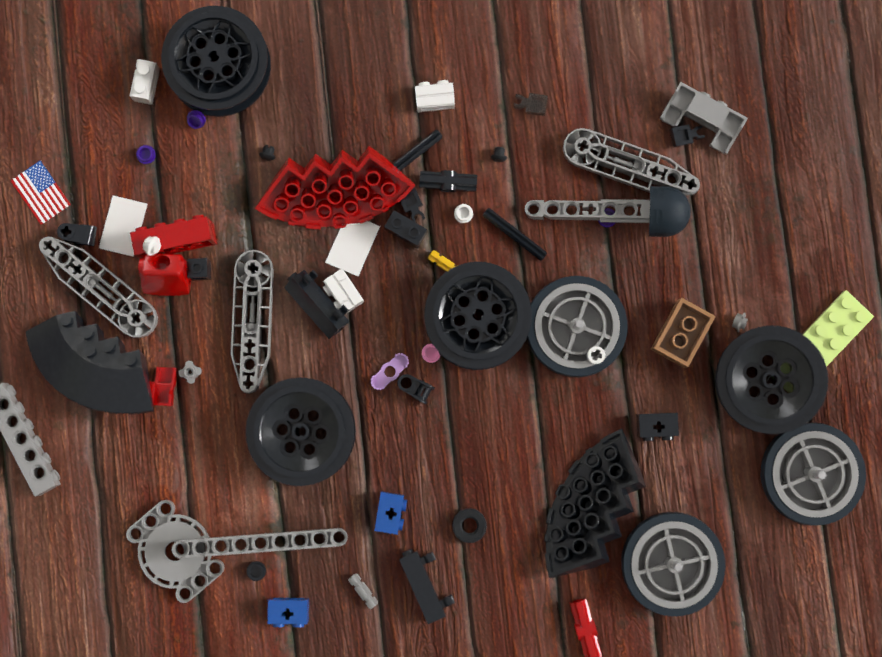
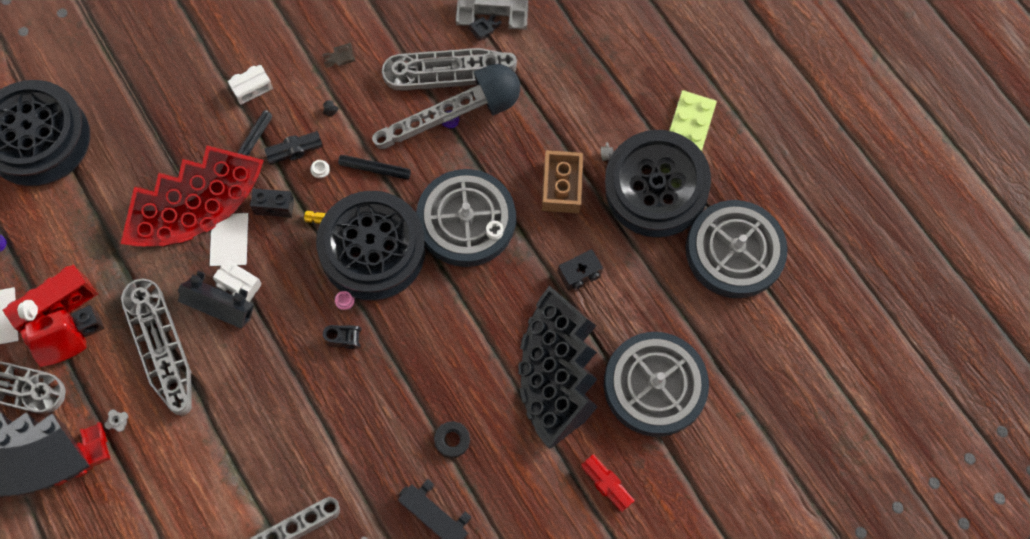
camera: 30 degrees left, 15 degrees down
(196, 119) = (33, 192): dark purple plate -> none
(267, 153) = (114, 194): black piece -> none
(269, 446) = (241, 387): black wheel -> none
(380, 380) = (318, 323): lavender piece -> none
(383, 522) = (370, 474): blue brick -> none
(412, 203) = (268, 179): black plate -> none

